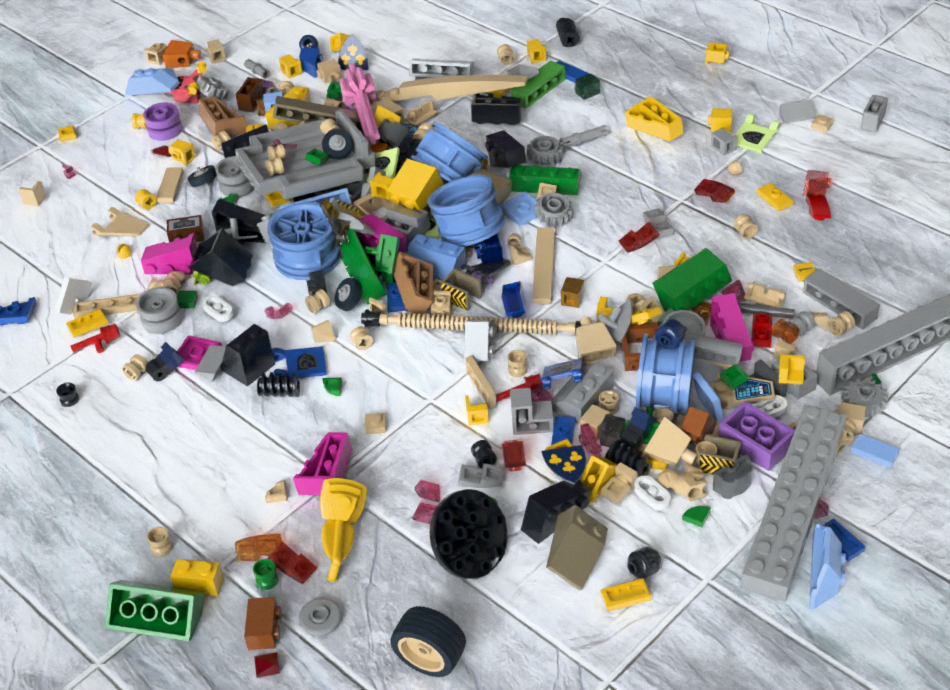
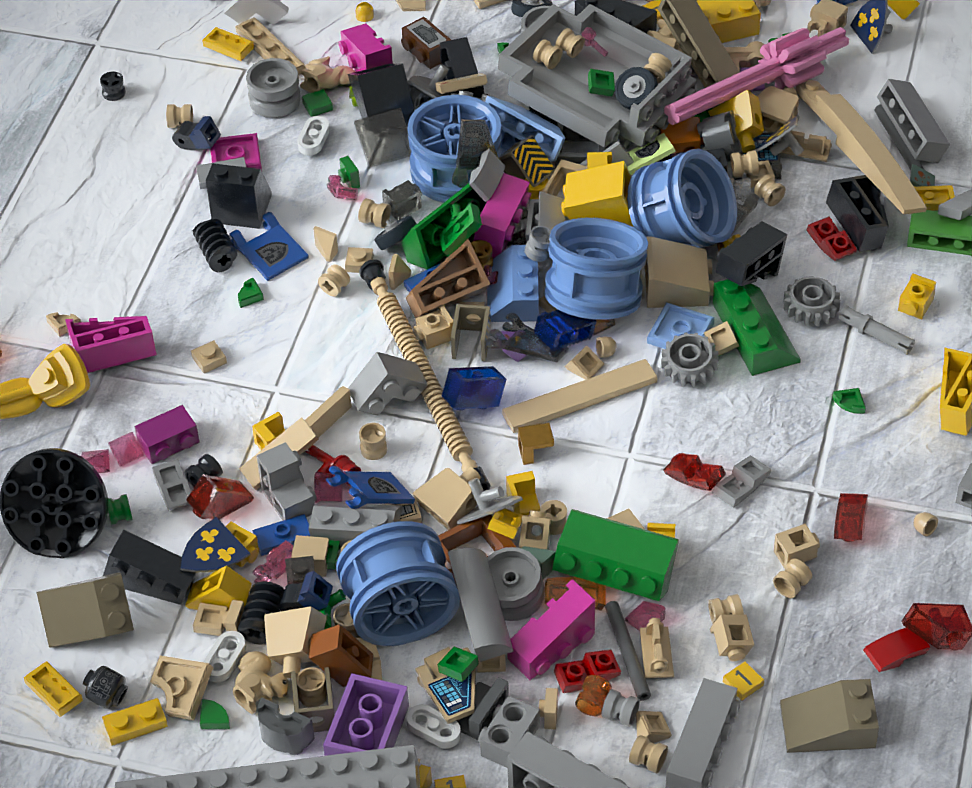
camera: 60 degrees right, 5 degrees up
(108, 334) = (214, 67): red piece -> none
(254, 216) = (461, 83): none -> tan tile
(256, 274) = (383, 137): none -> clear smoke tile
(270, 299) = (349, 172): none -> green plate
(348, 323) = (357, 257): none -> tan plate
(413, 112) = (788, 139): none -> light grey shield
(427, 225) = (538, 243): none -> light grey wheel
(435, 462) = (167, 434): none -> magenta brick
(500, 407) = (298, 438): none -> tan tile
(509, 126) = (830, 239): none -> red slope
(571, 114) = (917, 296): none -> yellow brick
(626, 164) = (850, 400): none -> green tile
(664, 520) = (183, 684): none -> tan tile
(670, 334) = (414, 543): dark blue head -> none
(678, 559) = (134, 721): none -> yellow plate
(708, 397) = (401, 649): light blue tile -> none
(724, 217) = (796, 544): none -> tan brick
(753, 258) = (729, 606): none -> tan wheel
(775, 196) = (892, 592): yellow plate -> none
(775, 262) = (733, 636): none -> tan brick
(791, 369) = (492, 716): yellow panel -> none
(853, 245) = (831, 718): none -> dark tan slope

